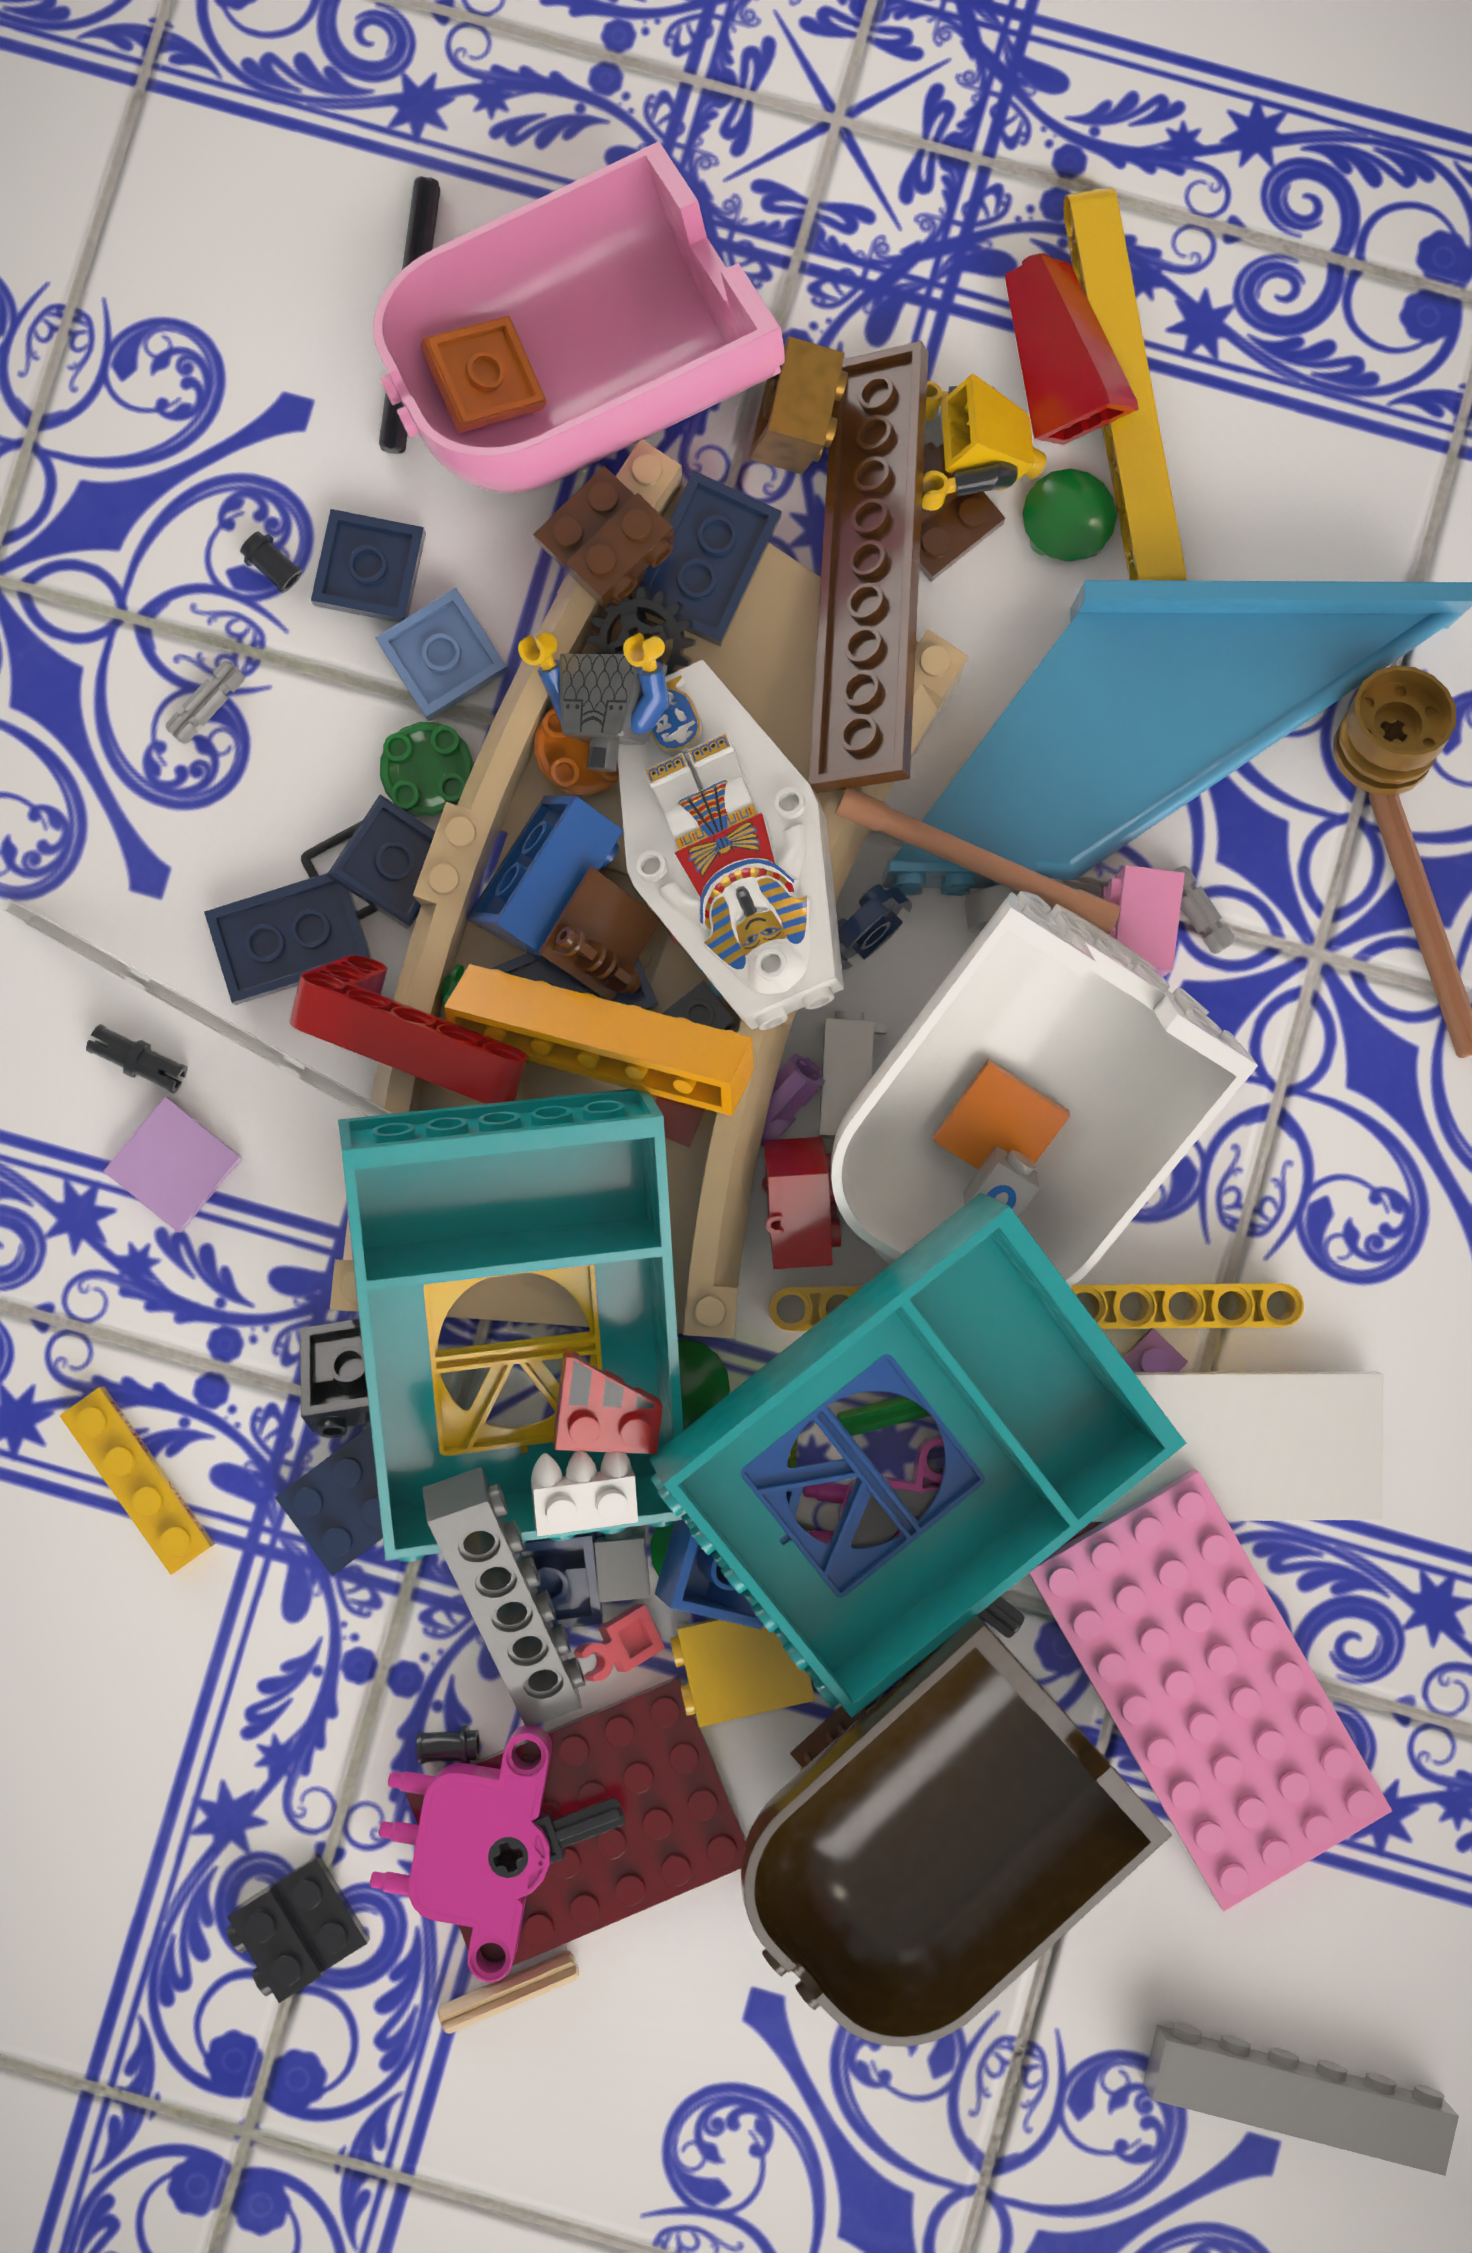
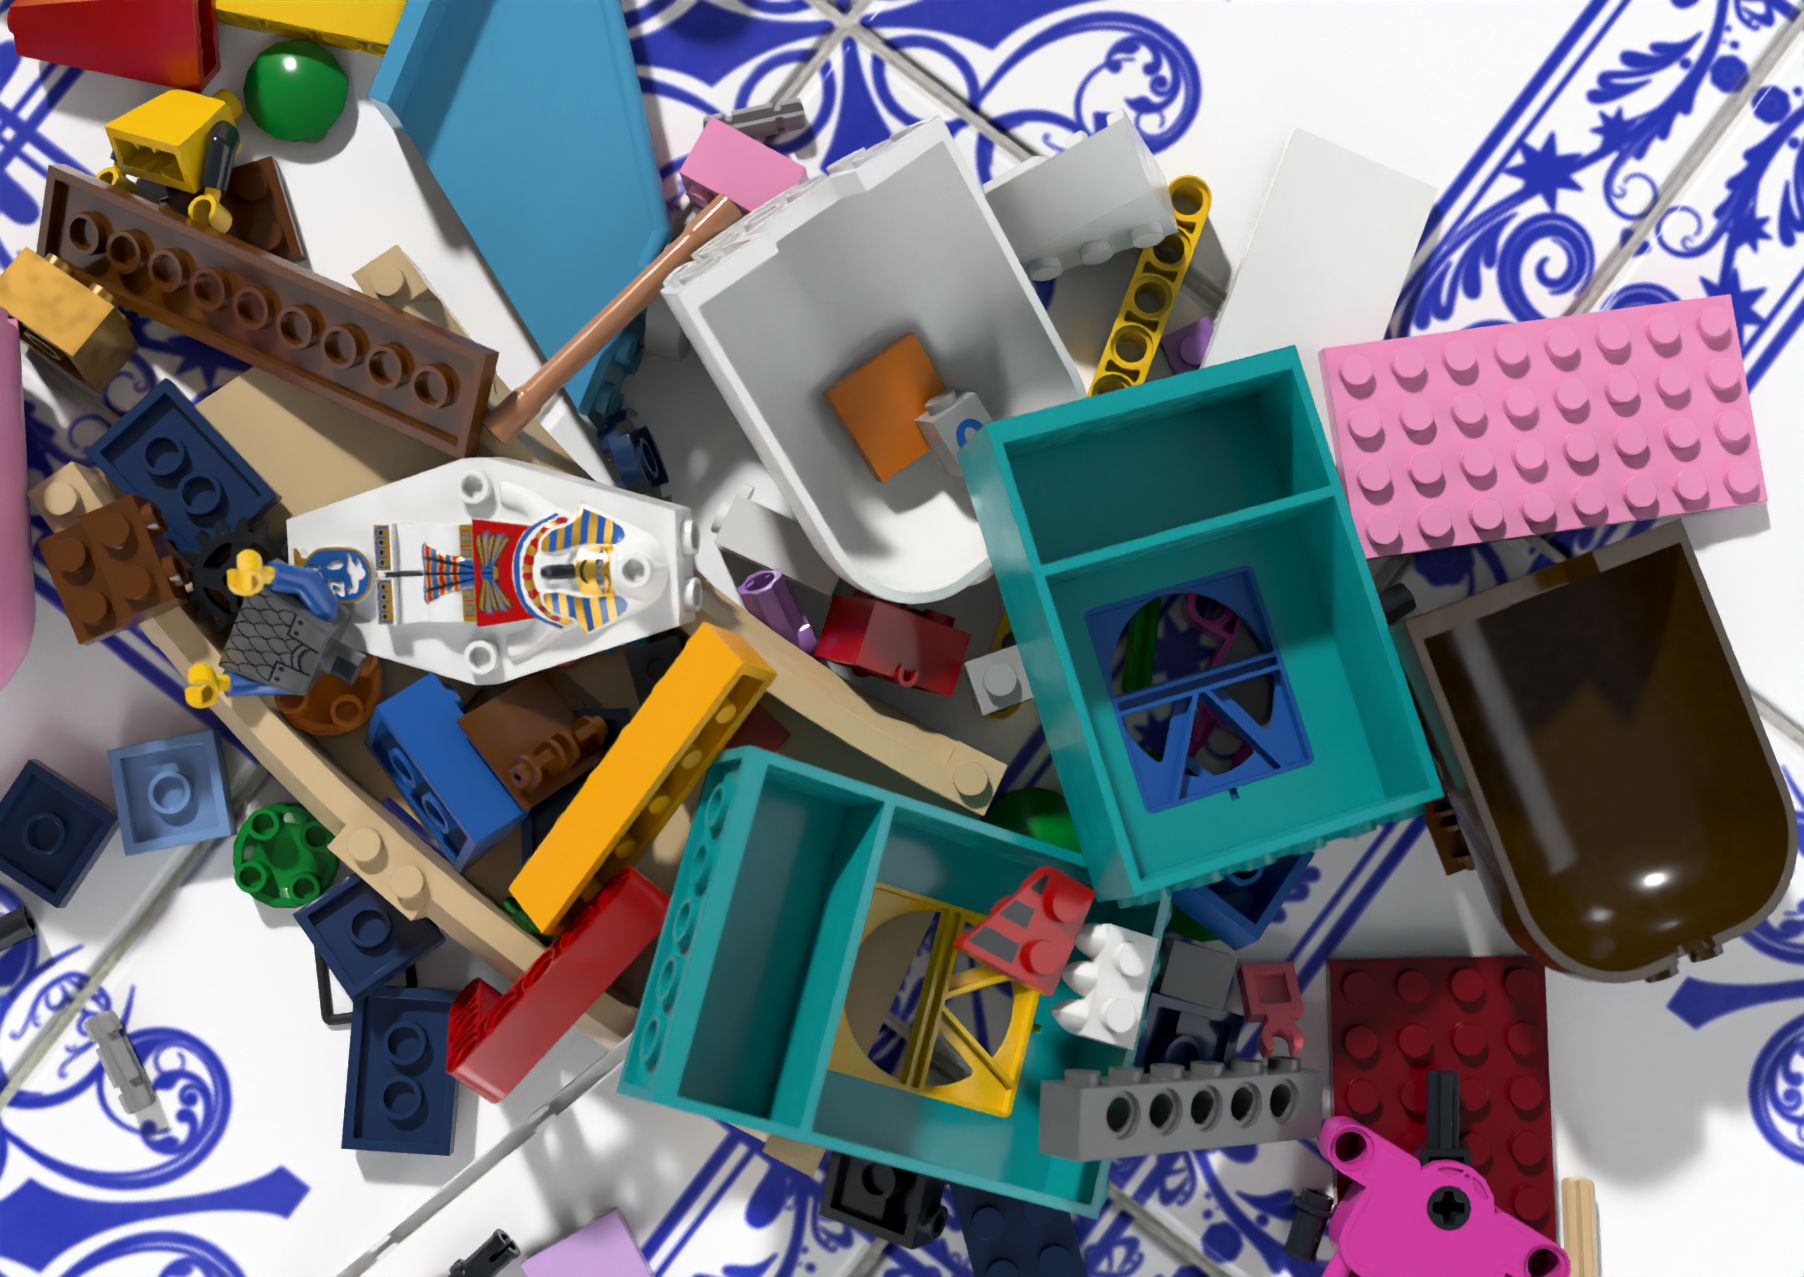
camera: 65 degrees left, 0 degrees up
(736, 1671) = (1346, 898): yellow panel -> none
(802, 1303) = (998, 680): none -> light grey brick
(1239, 1216) = (1084, 201): none -> white wedge

